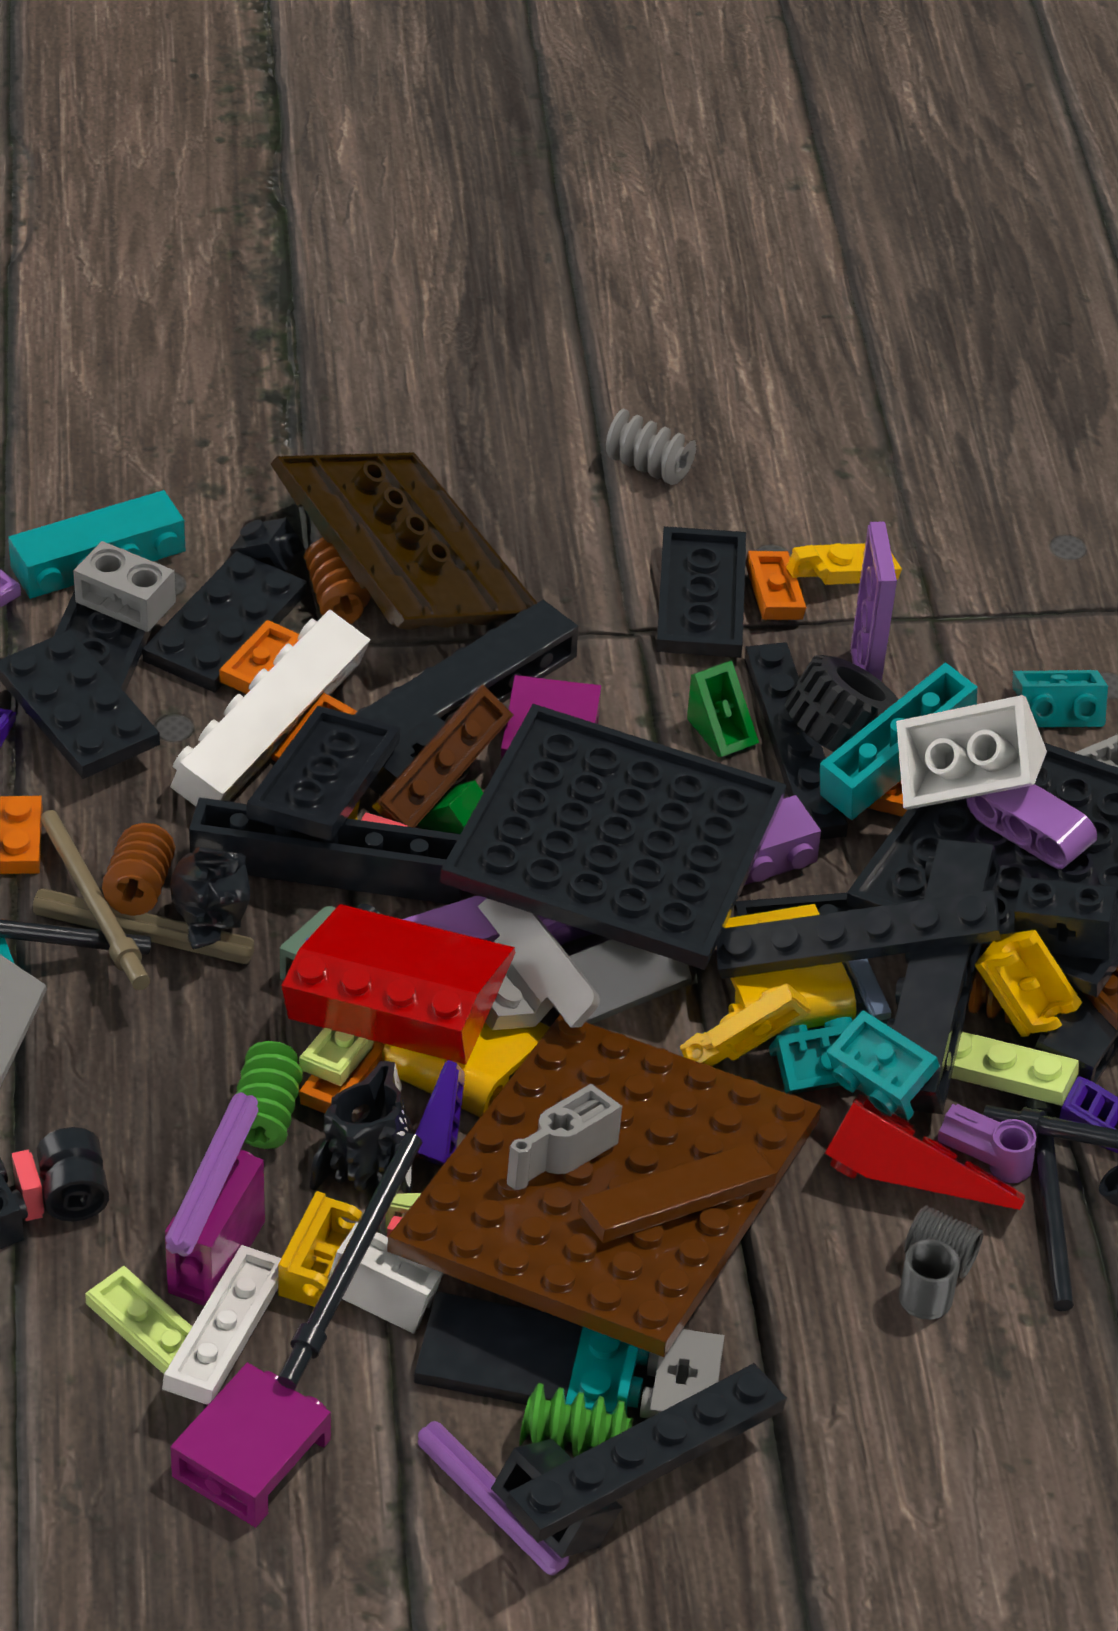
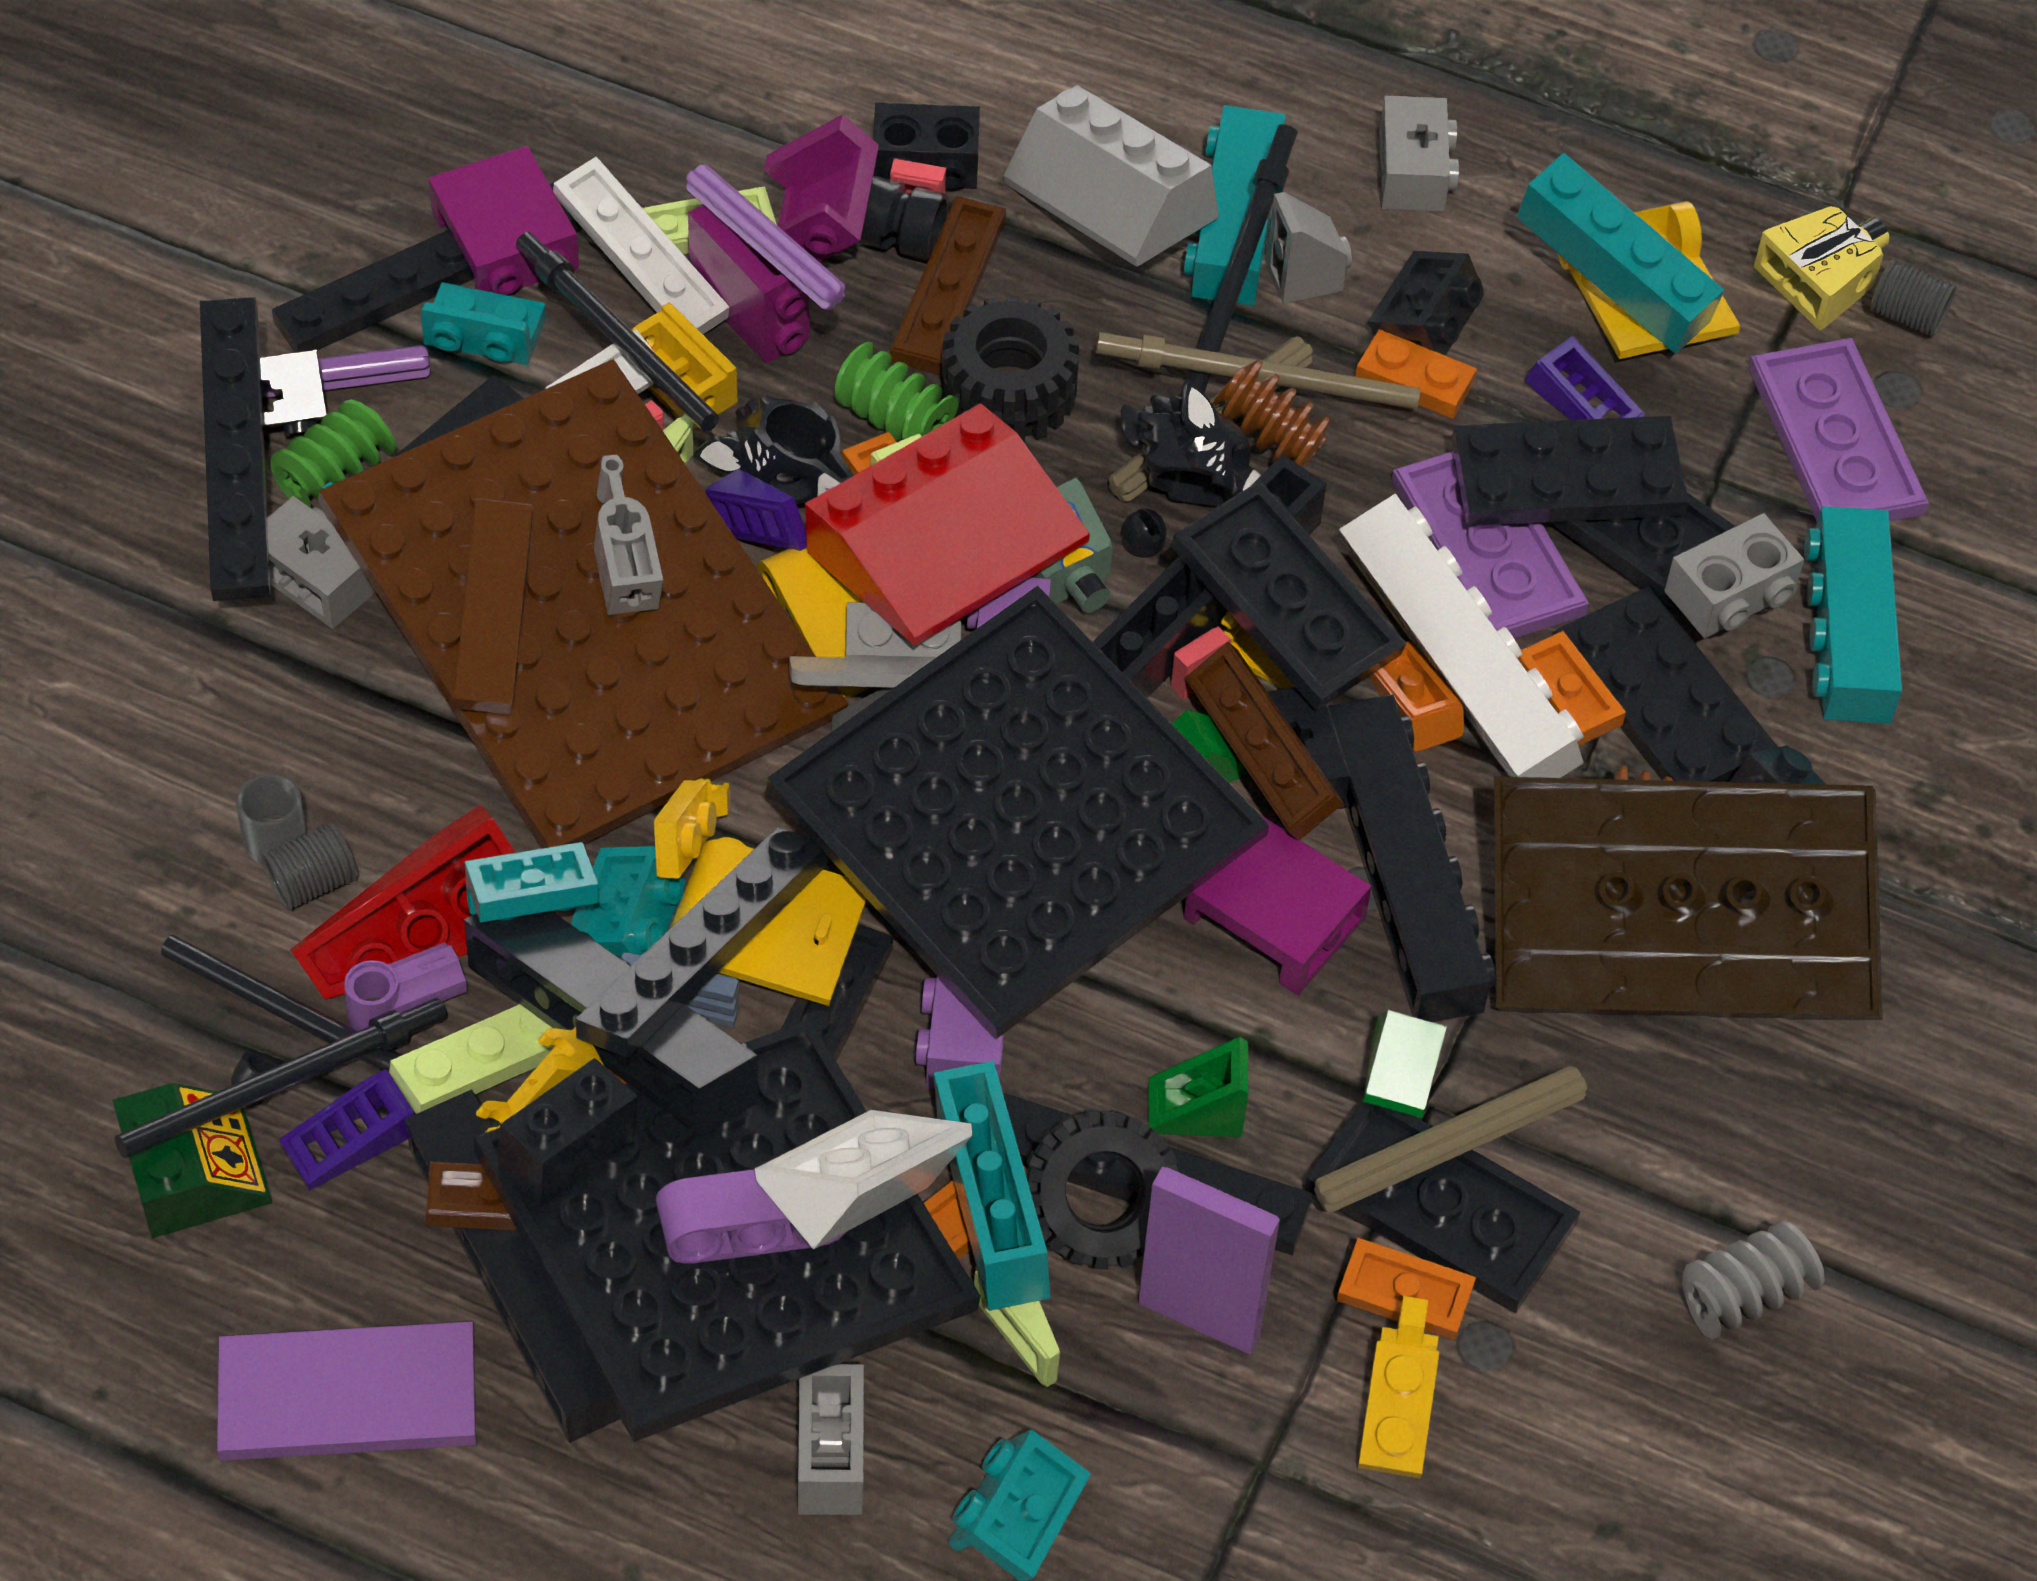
camera: 120 degrees right, 10 degrees up
(102, 1219) = (825, 187): none -> magenta panel
(127, 1131) = (948, 282): none -> reddish brown tile
(180, 714) = (1508, 563): none -> medium lavender tile
(185, 1012) = (1019, 337): none -> black tyre
(285, 927) = (1136, 536): none -> black hinge
(363, 1414) = (483, 323): none -> teal bracket
(376, 1509) = (375, 292): none -> black plate
(619, 629) = (1403, 1062): none -> slope
(668, 584) = (1450, 1139): none -> dark tan axle

